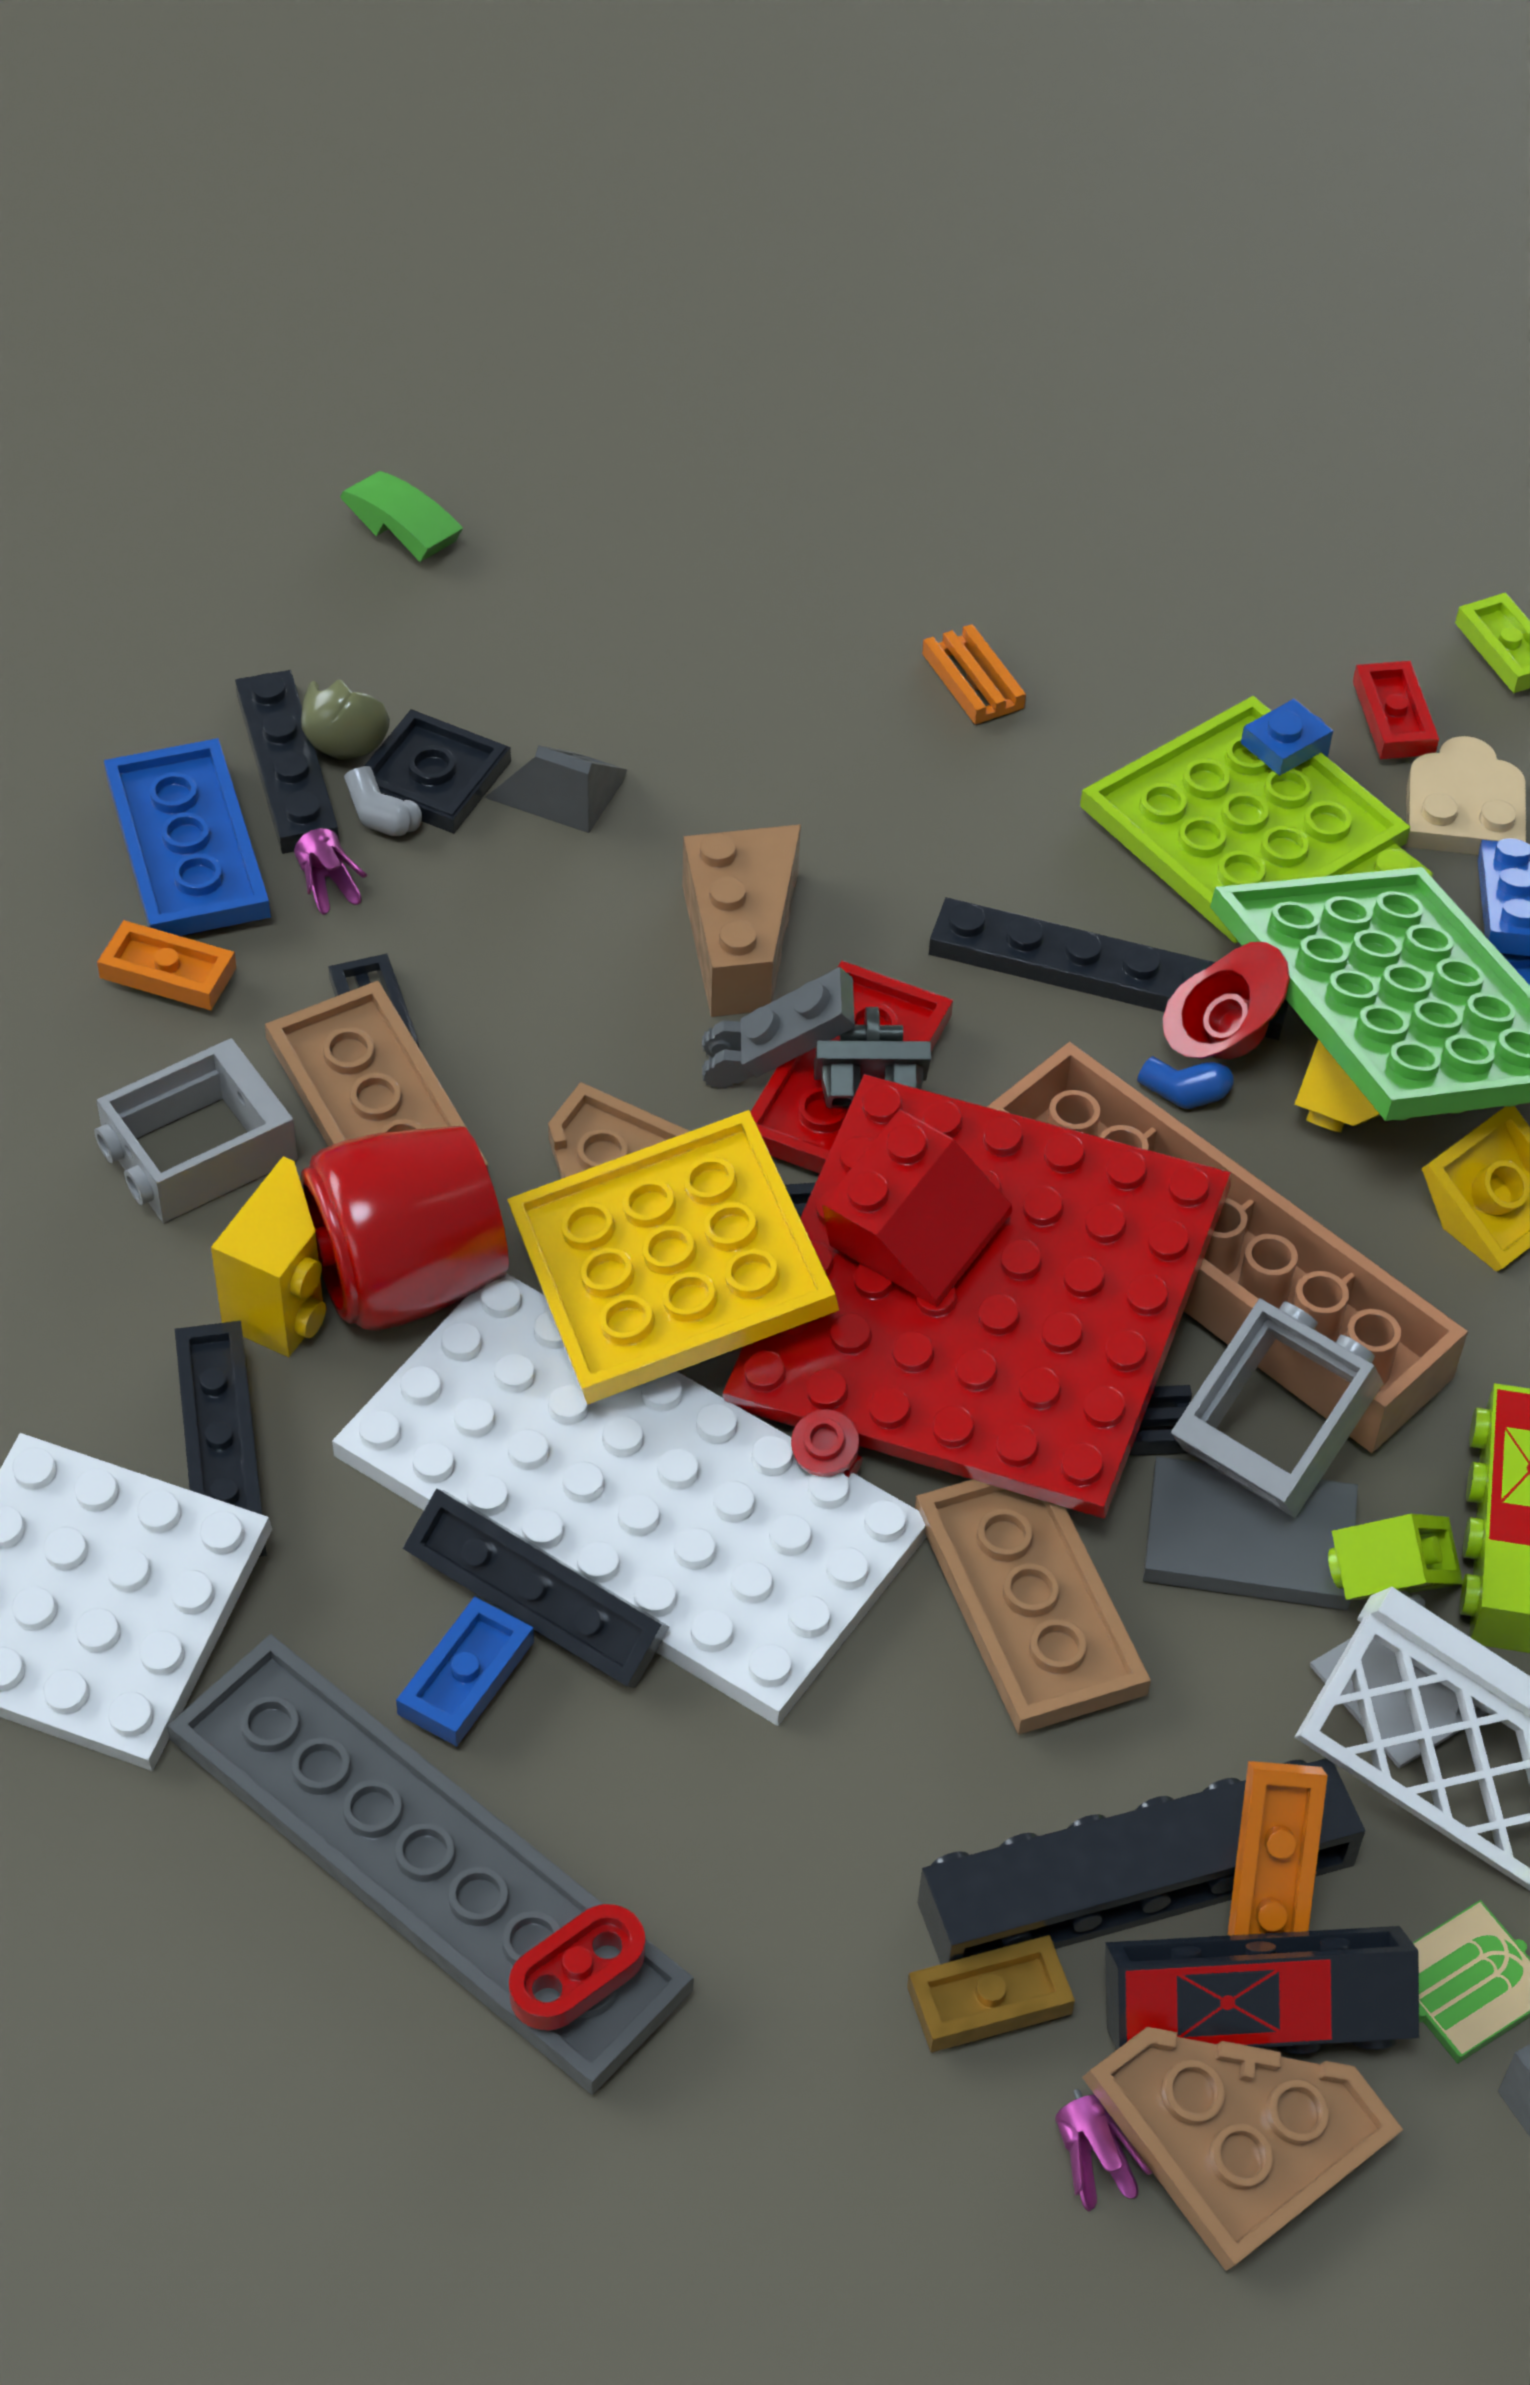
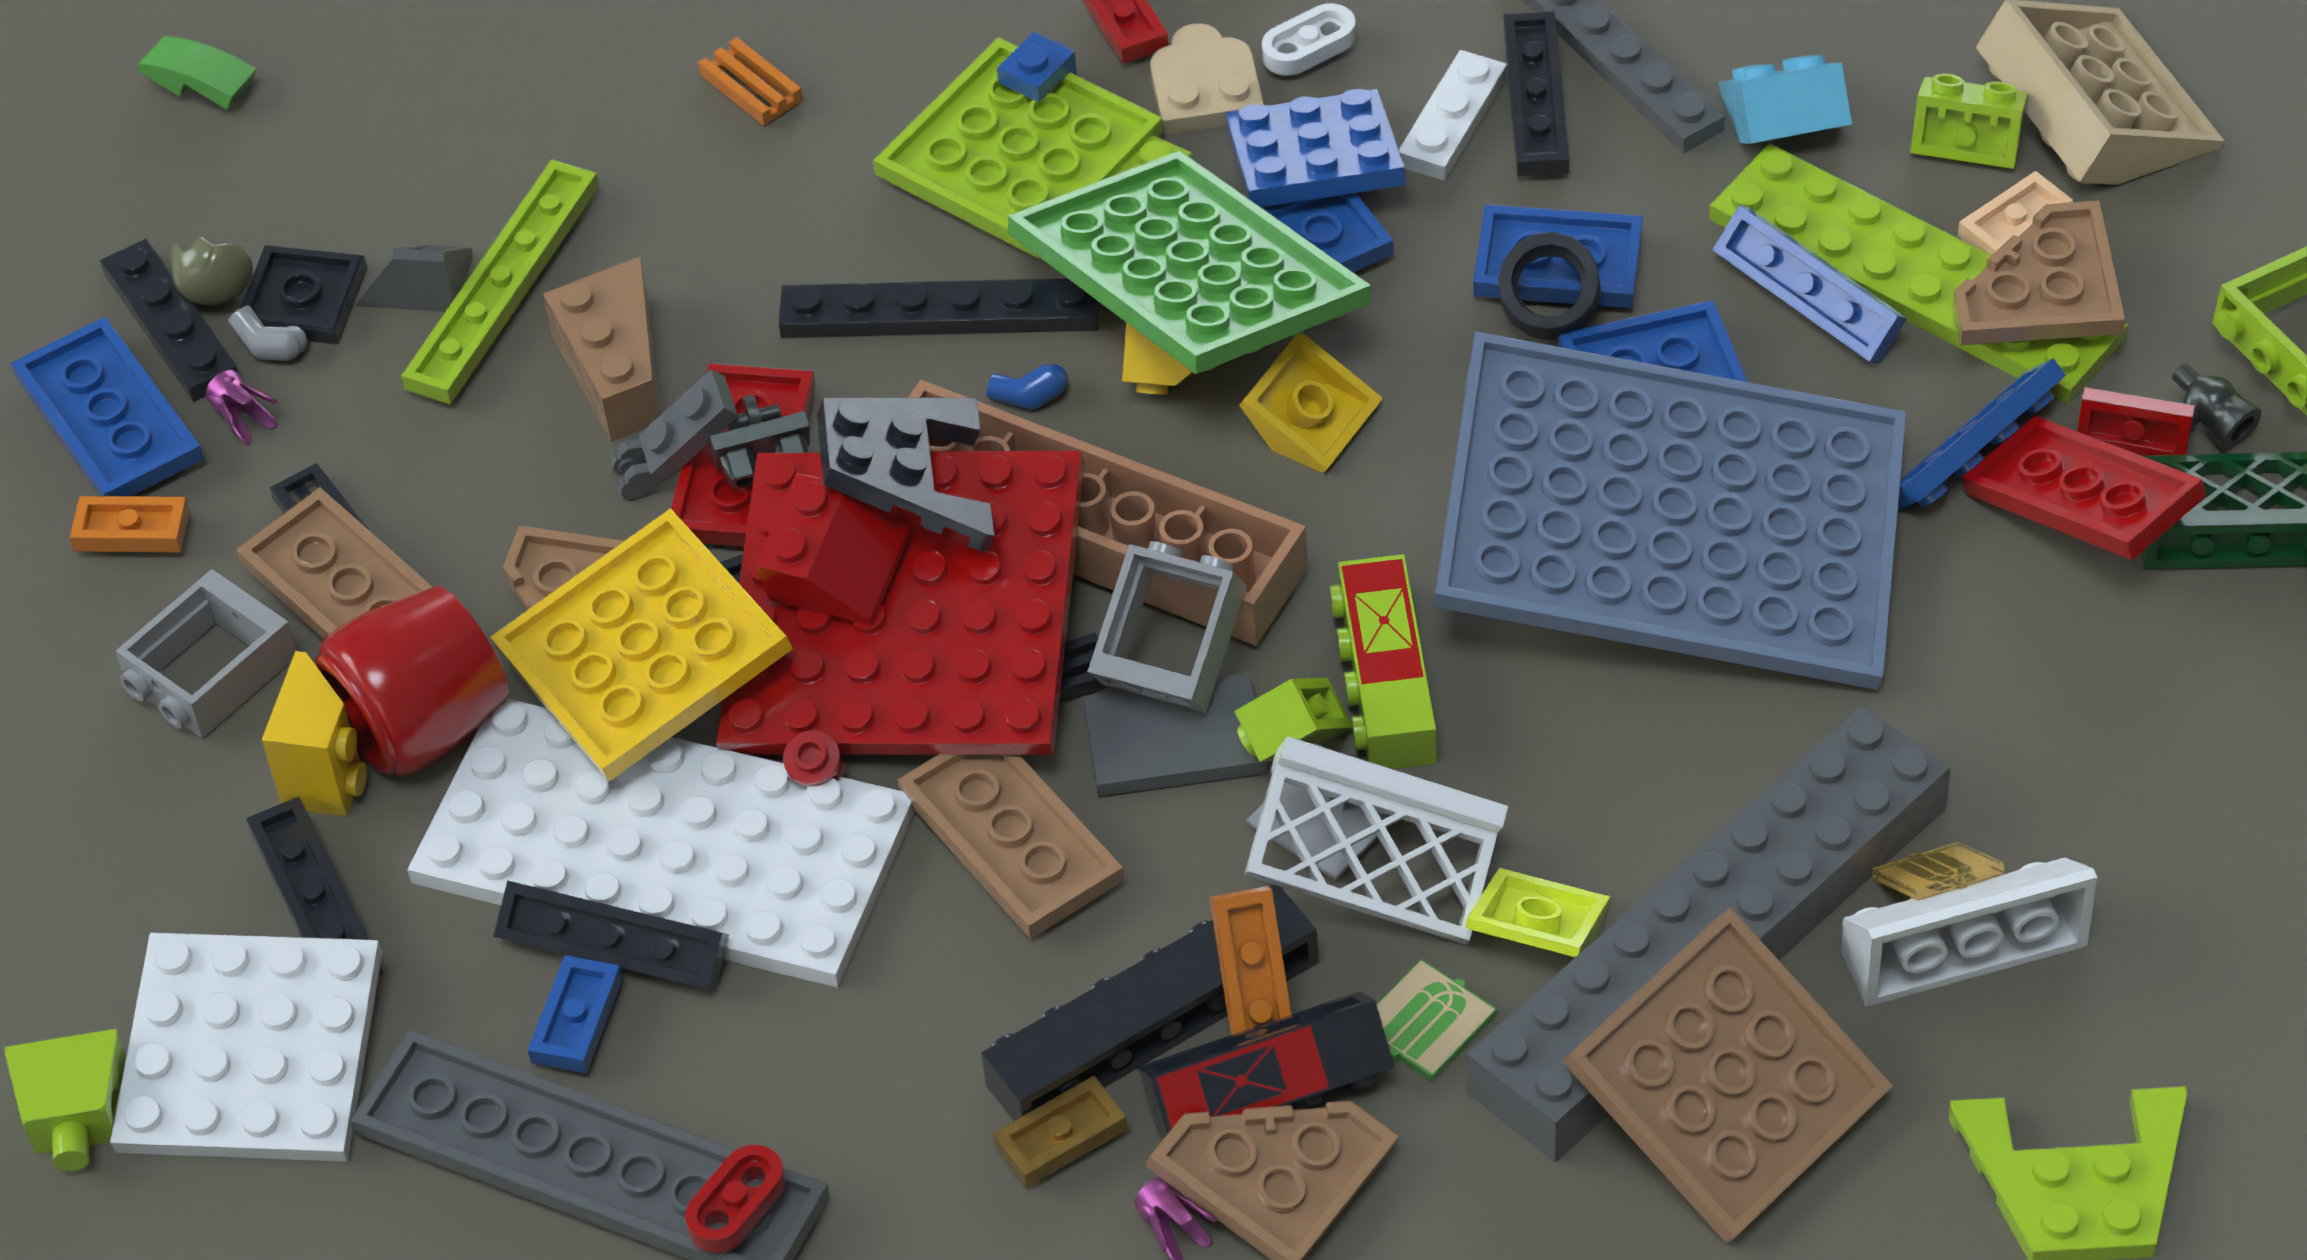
camera: 10 degrees left, 0 degrees up
(643, 814) = (500, 282): none -> lime plate
(1002, 1120) = (883, 458): none -> wing
(1228, 1004) = (1045, 312): red piece -> none

